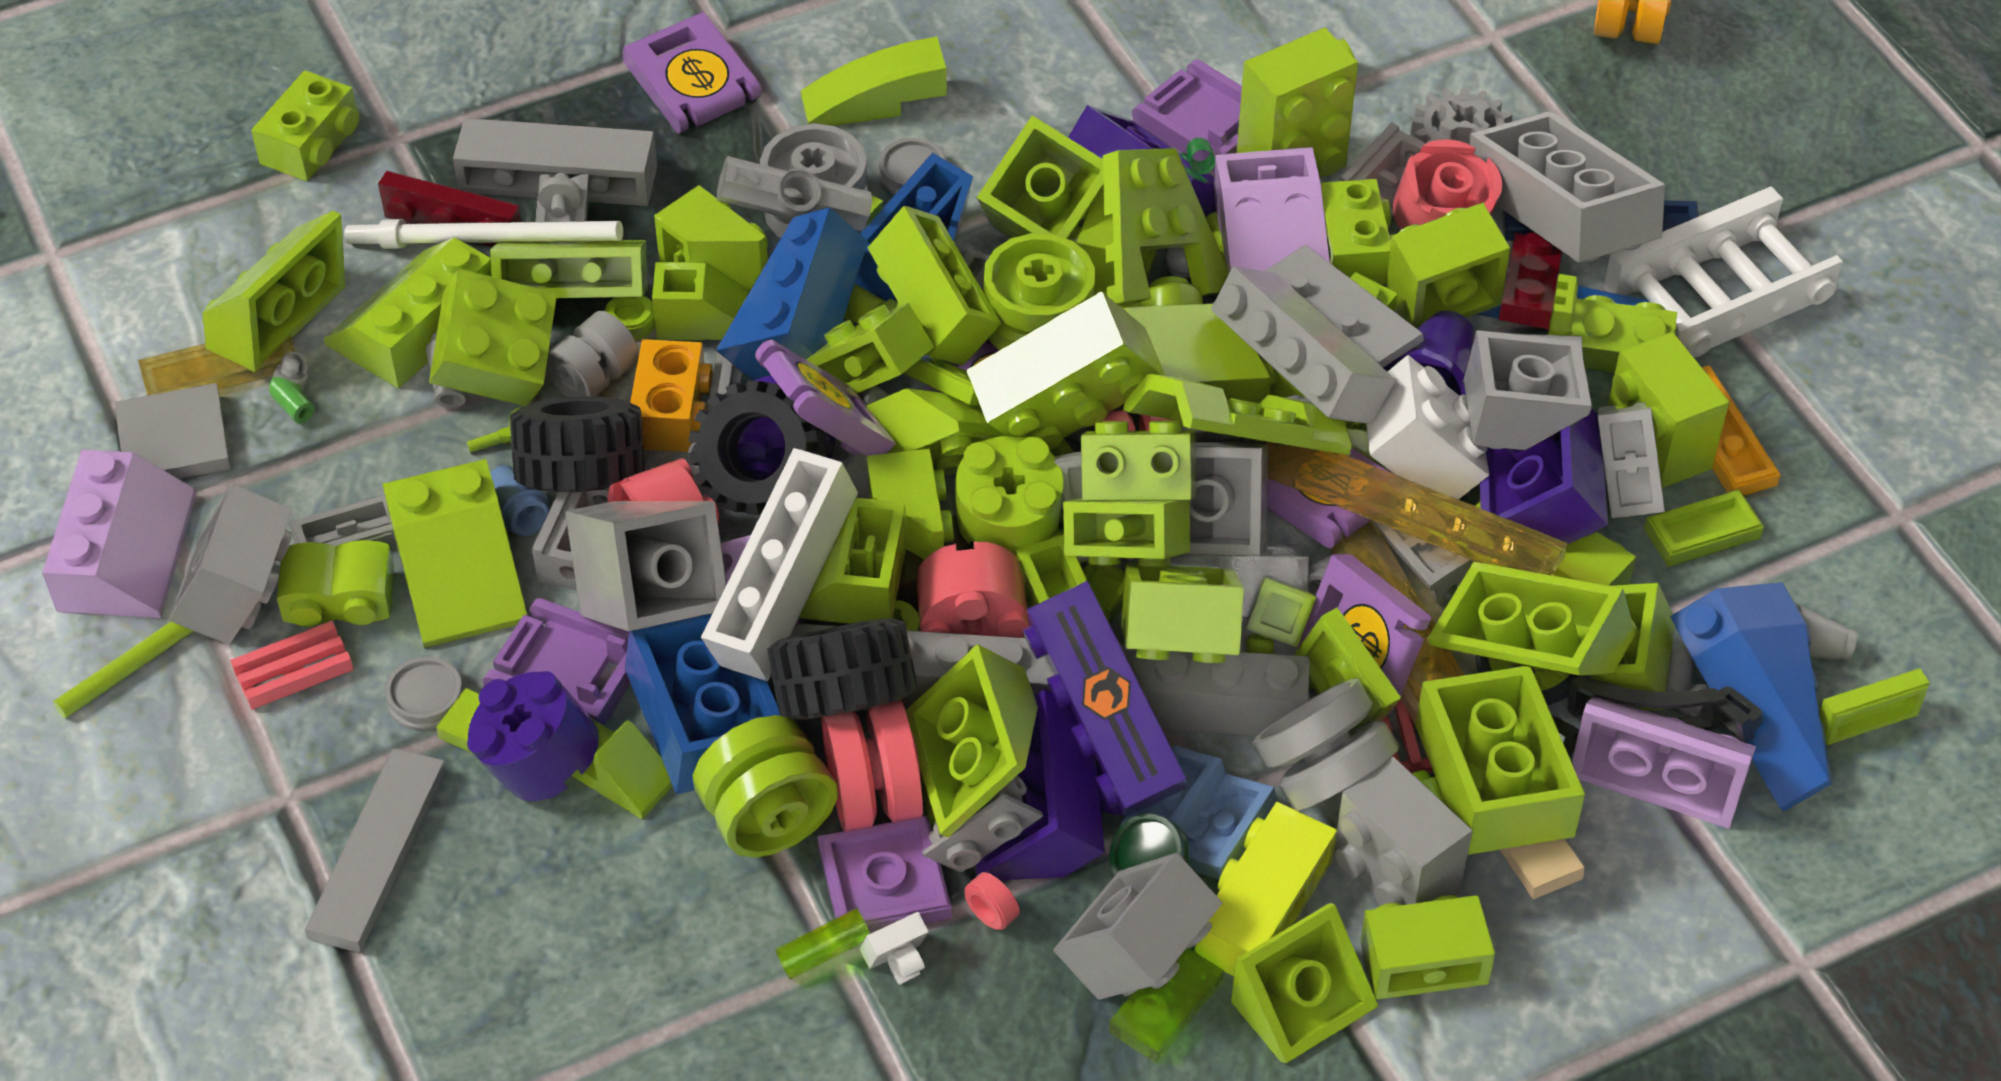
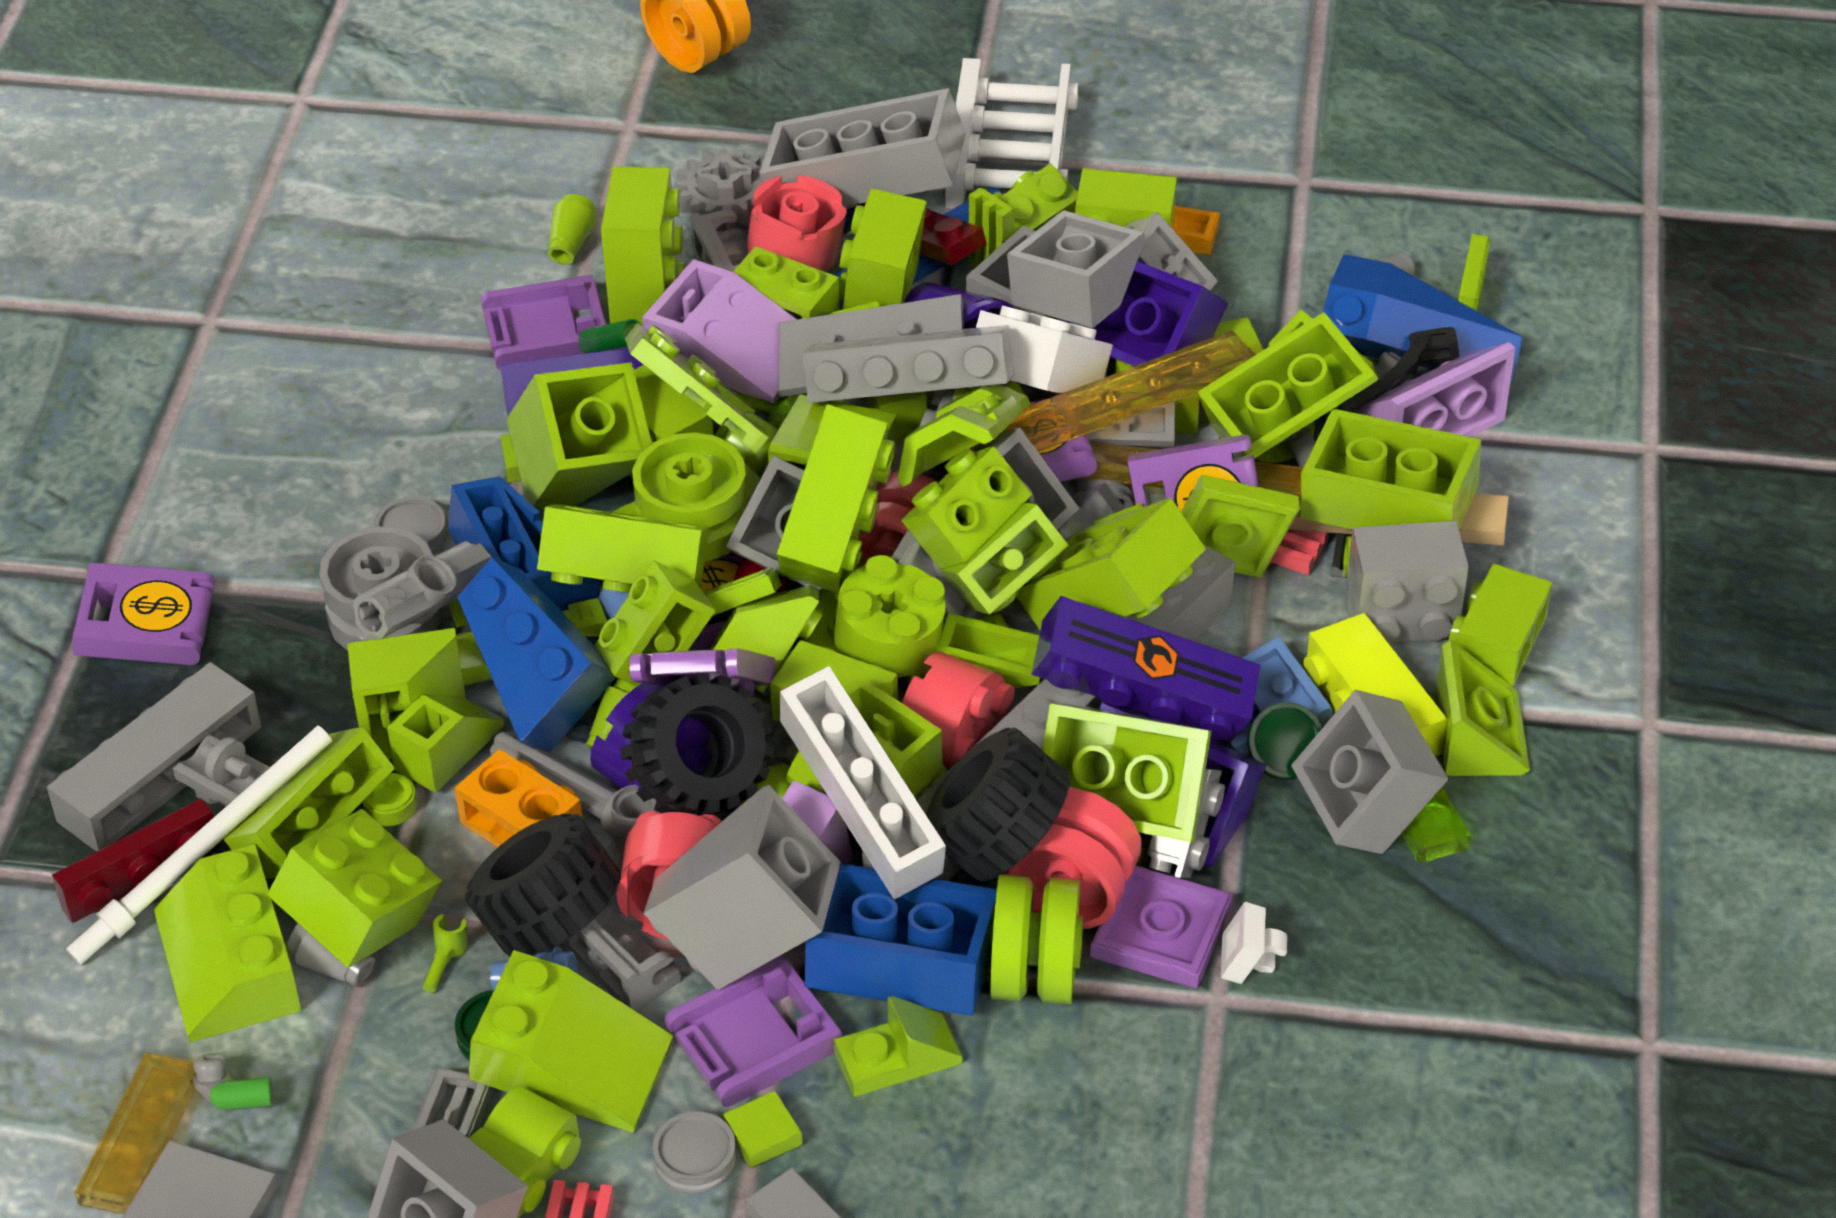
camera: 55 degrees left, 5 degrees down
(278, 293) = (116, 1028): lime slope -> none
(532, 734) = (818, 1053): dark purple brick -> none
(592, 357) = (431, 829): light grey wheel -> none
(823, 943) = (1208, 991): clear neon green hinge -> none
(877, 84) = (299, 497): lime slope -> none
(991, 901) = (1251, 861): coral tile -> none
(1326, 744) = (1297, 566): light grey wheel -> none
(1703, 528) = (1235, 270): lime tile -> none

